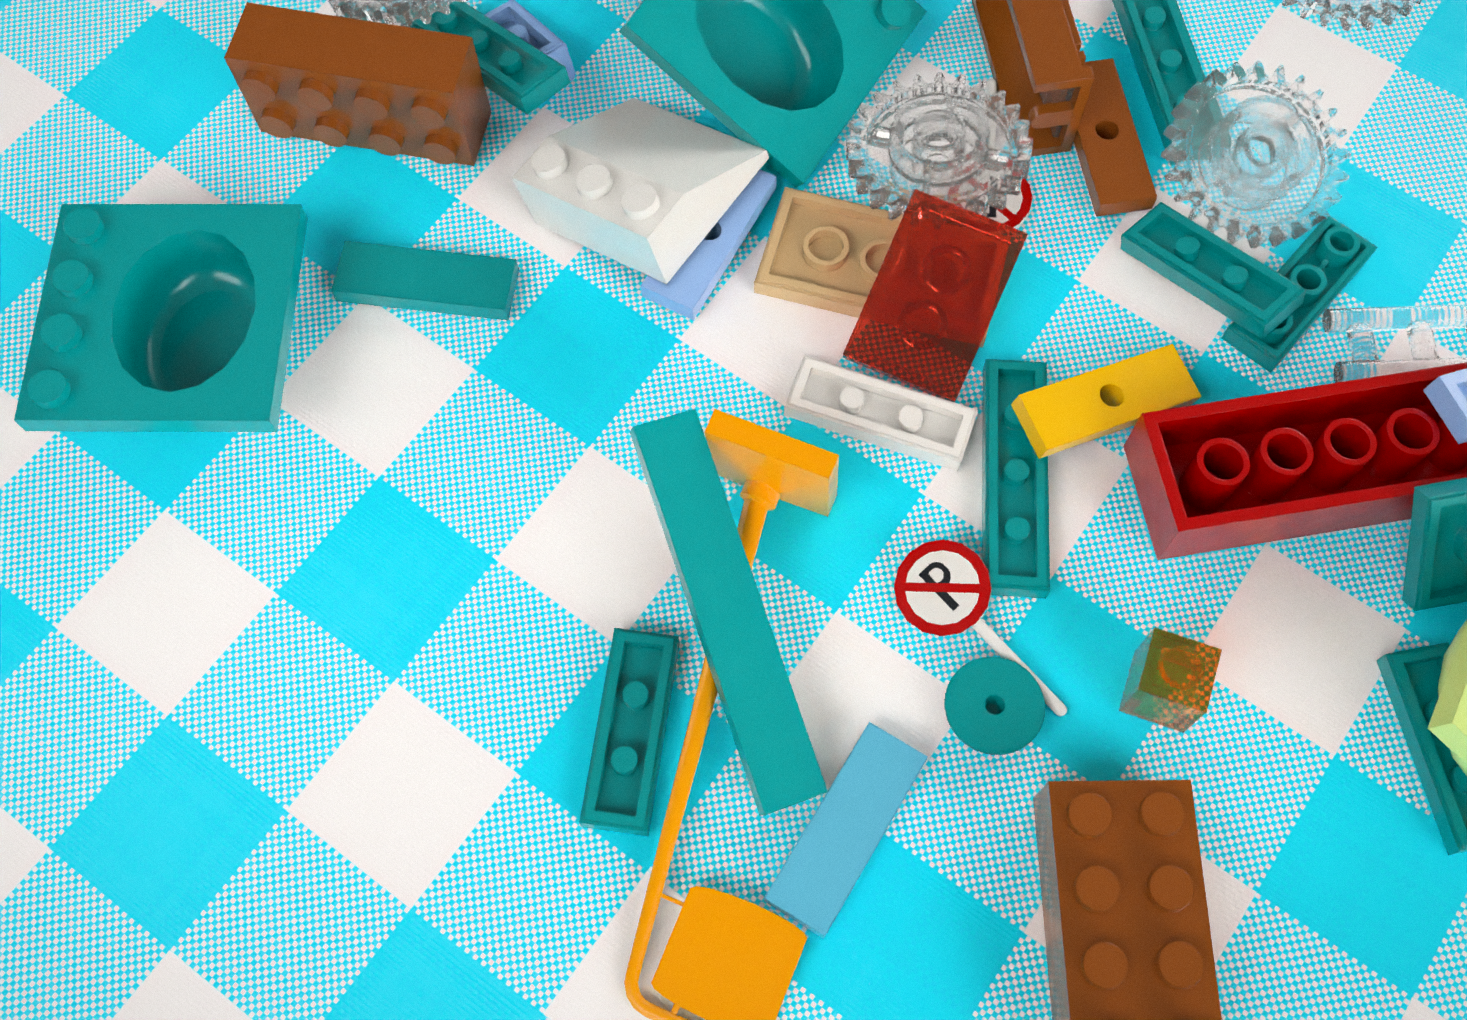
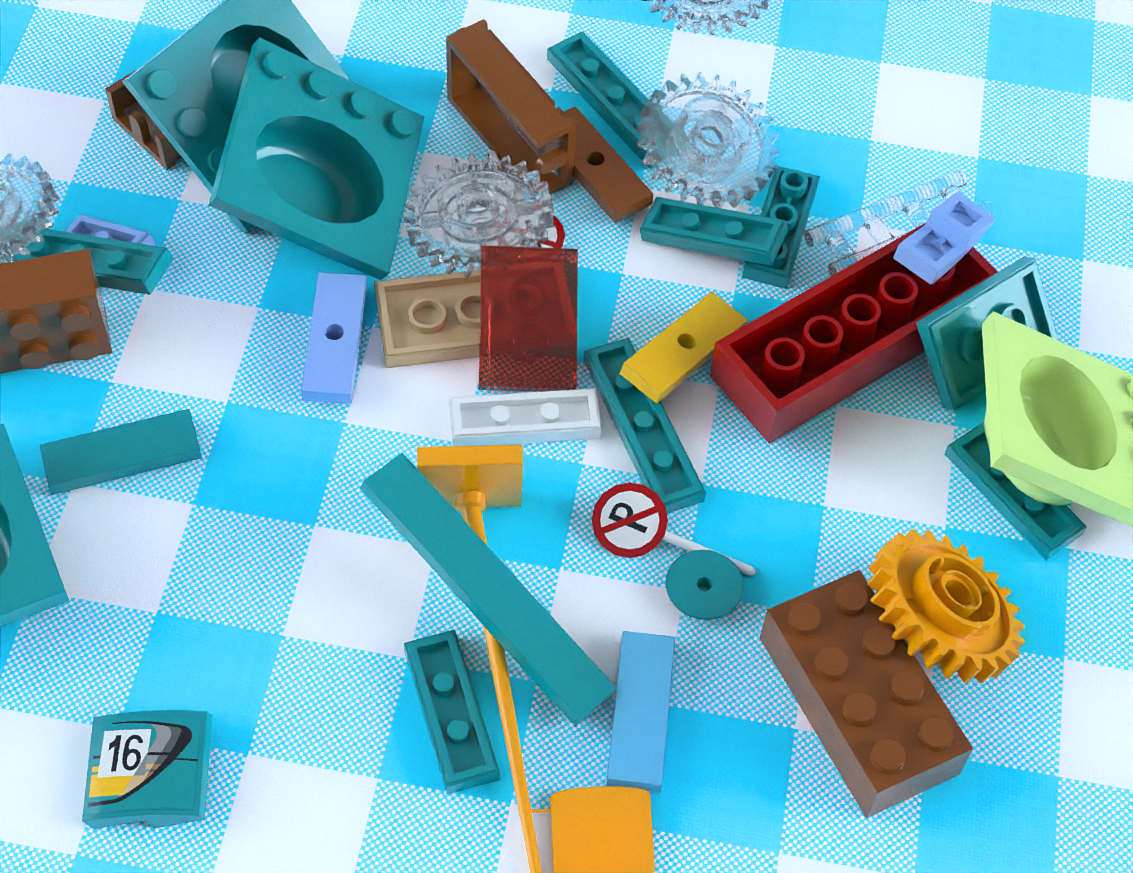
camera: 30 degrees left, 10 degrees down
(277, 654) = (148, 768): none -> teal slope
(637, 184) = (261, 319): white slope -> none
(1170, 680) = (815, 517): clear orange brick -> none
(1283, 874) = (946, 606): none -> light orange gear

